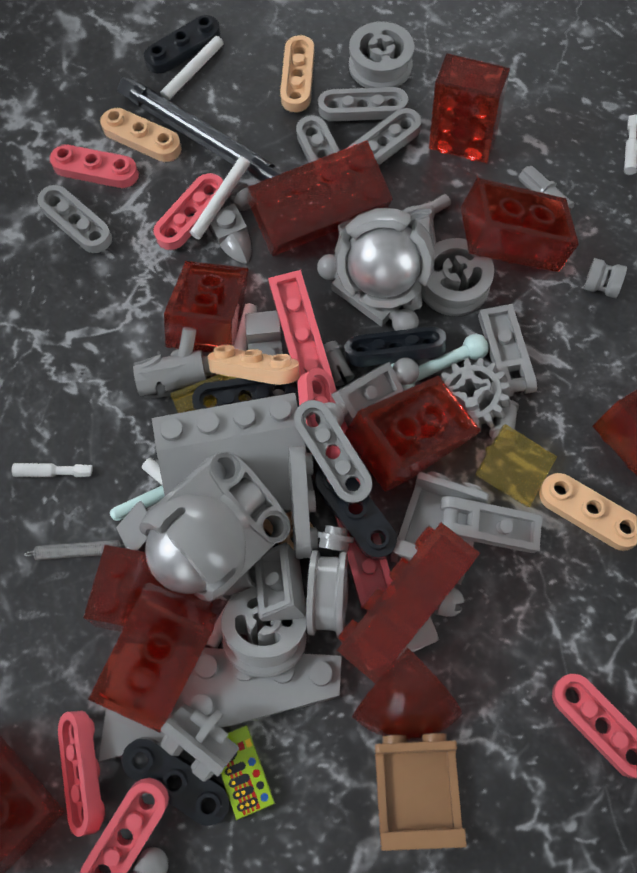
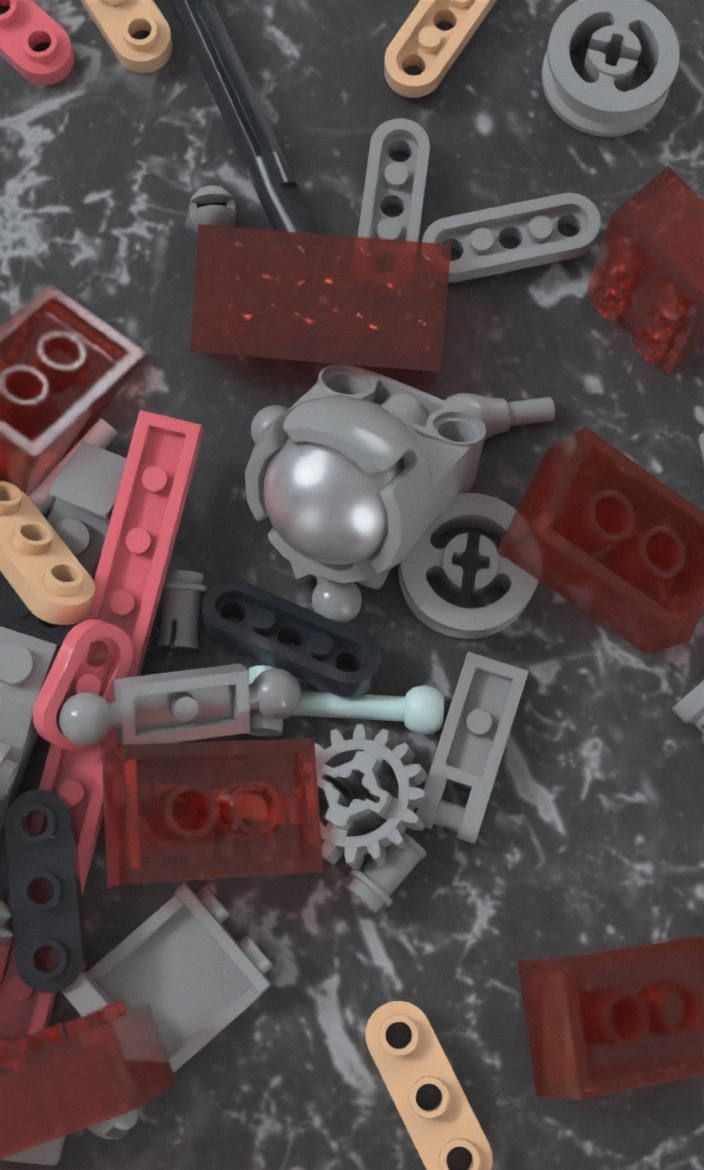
camera: 25 degrees right, 10 degrees up
(176, 219) = (124, 175): coral plate -> none
(219, 198) = (164, 201): white bar -> none
(232, 234) = (156, 271): light grey plate -> none
(329, 434) = (31, 815): light grey plate -> none
(361, 103) = (506, 124): light grey plate -> none
(493, 524) = (246, 1033): light grey plate -> none
(516, 465) = (353, 954): clear yellow piece -> none

